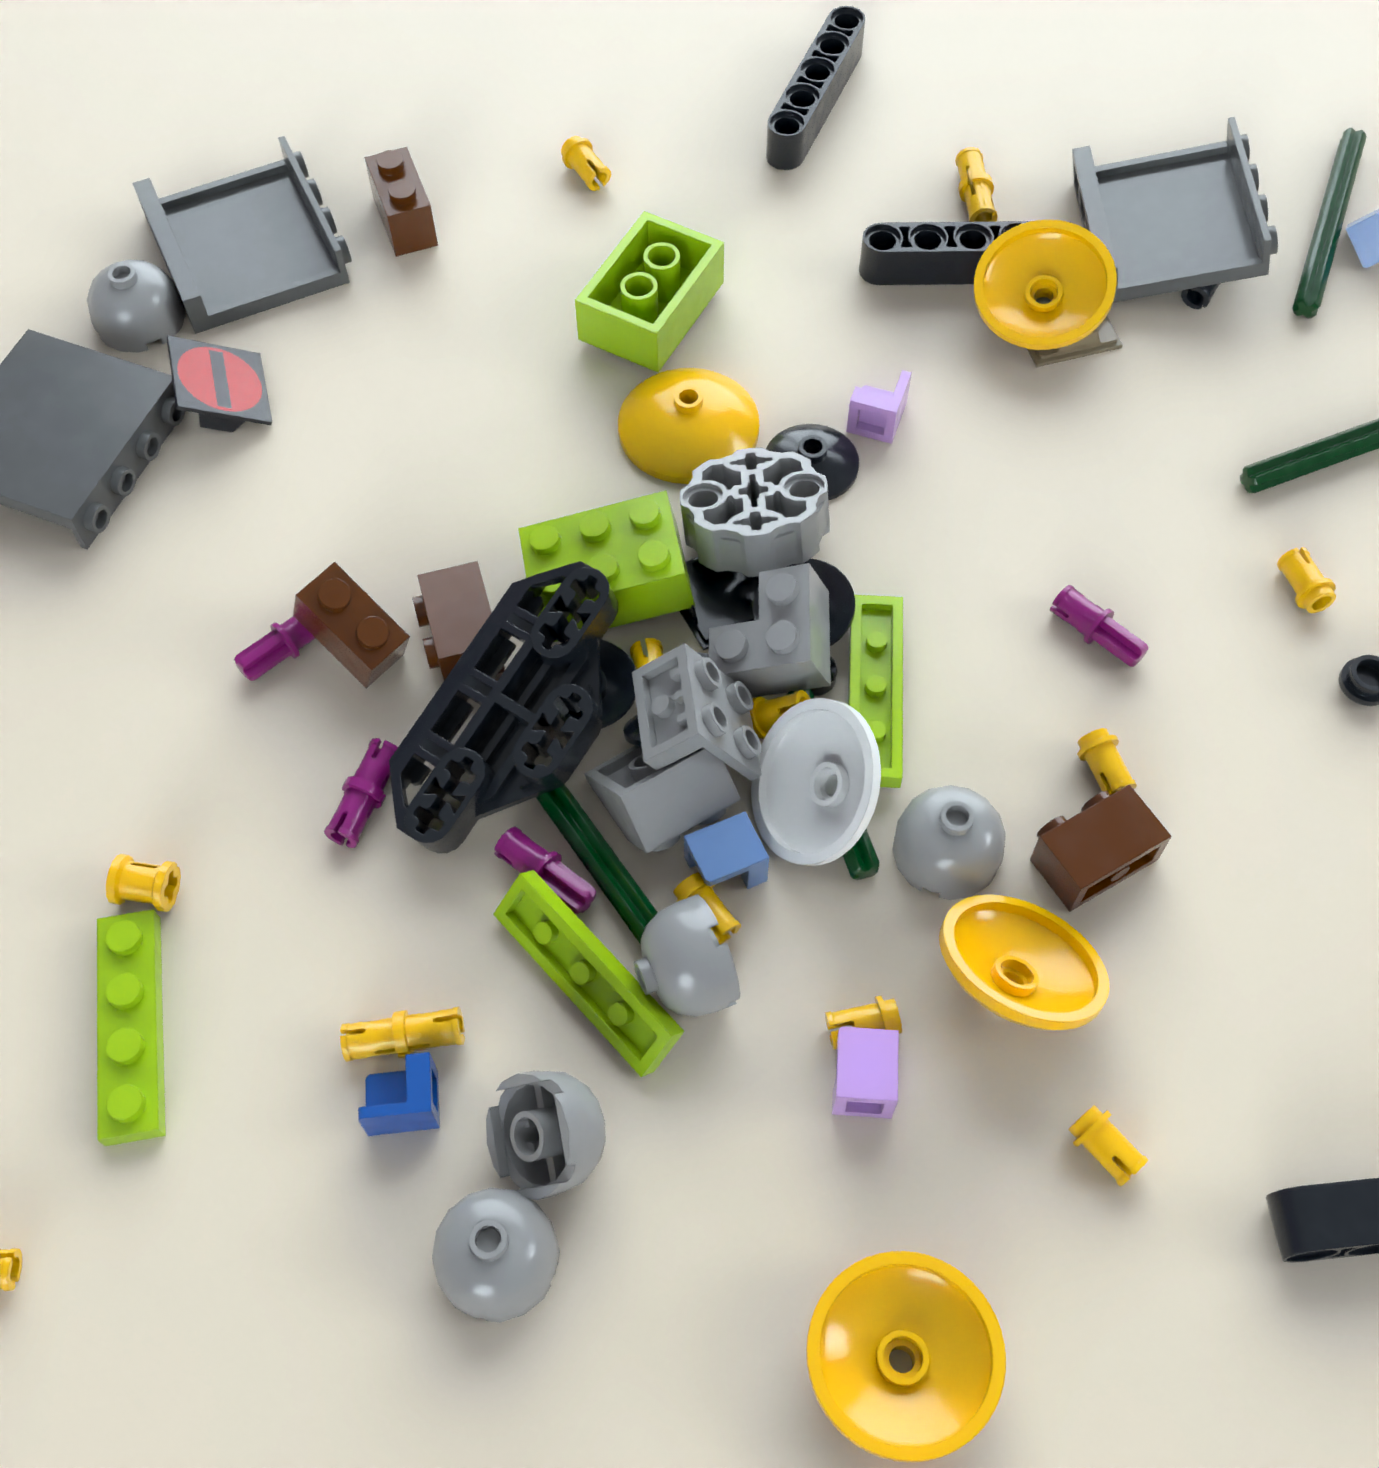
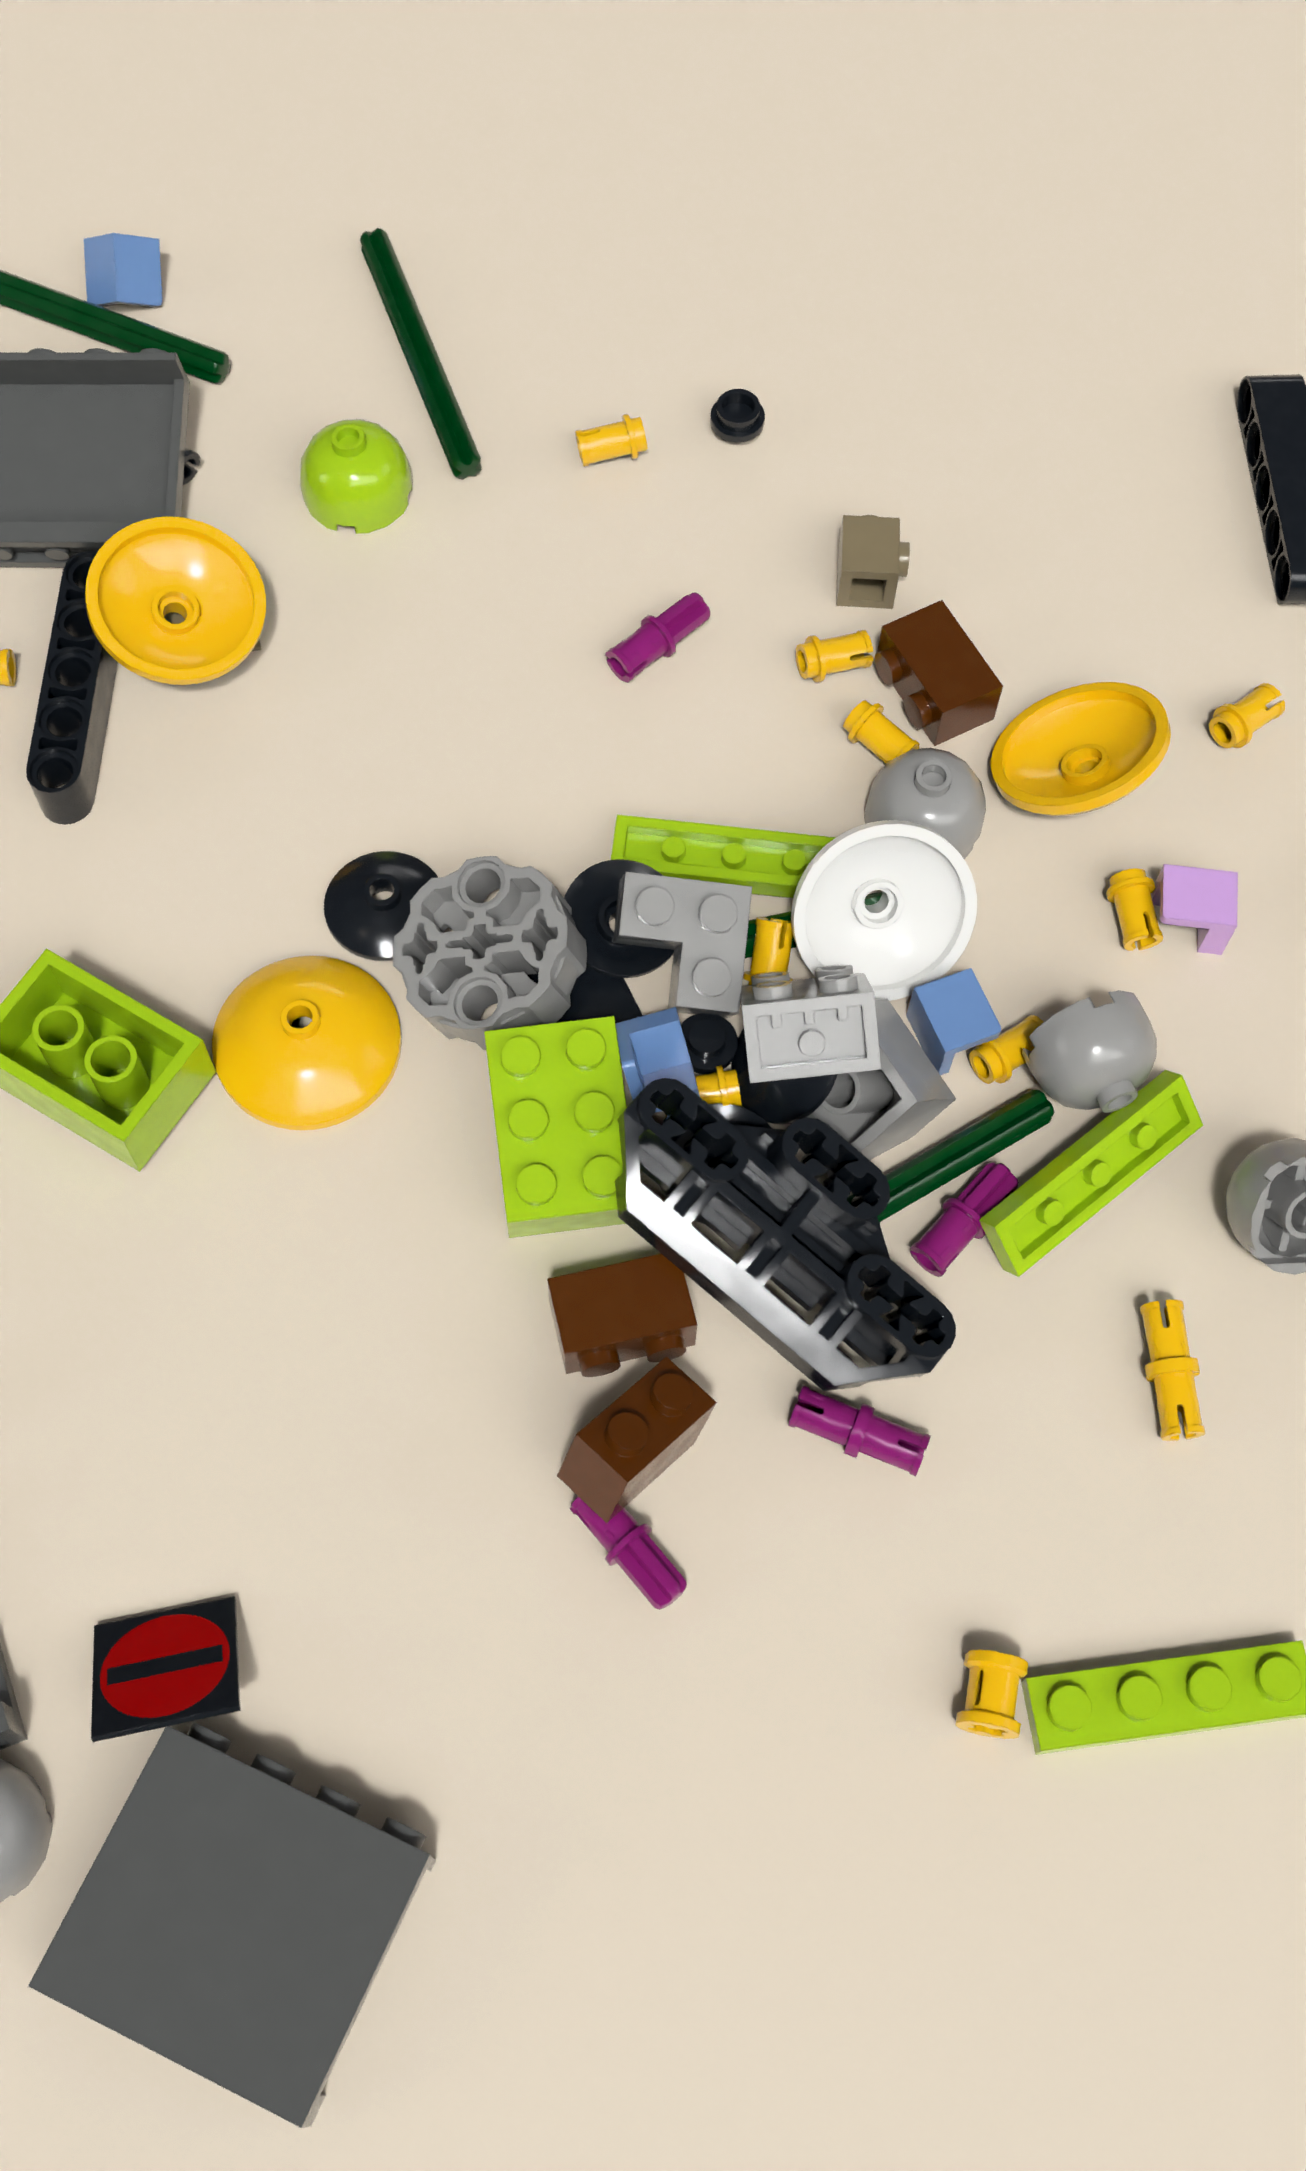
camera: 90 degrees left, 5 degrees up
(402, 1098) = (1247, 1368): blue panel -> none
(659, 618) = (653, 1050): none -> medium blue panel
(877, 411) = (319, 813): lavender panel -> none
(1025, 800) = (877, 732): none -> yellow pin
(1216, 402) = (355, 476): none -> lime cylinder
(1218, 787) = (870, 561): none -> dark tan brick

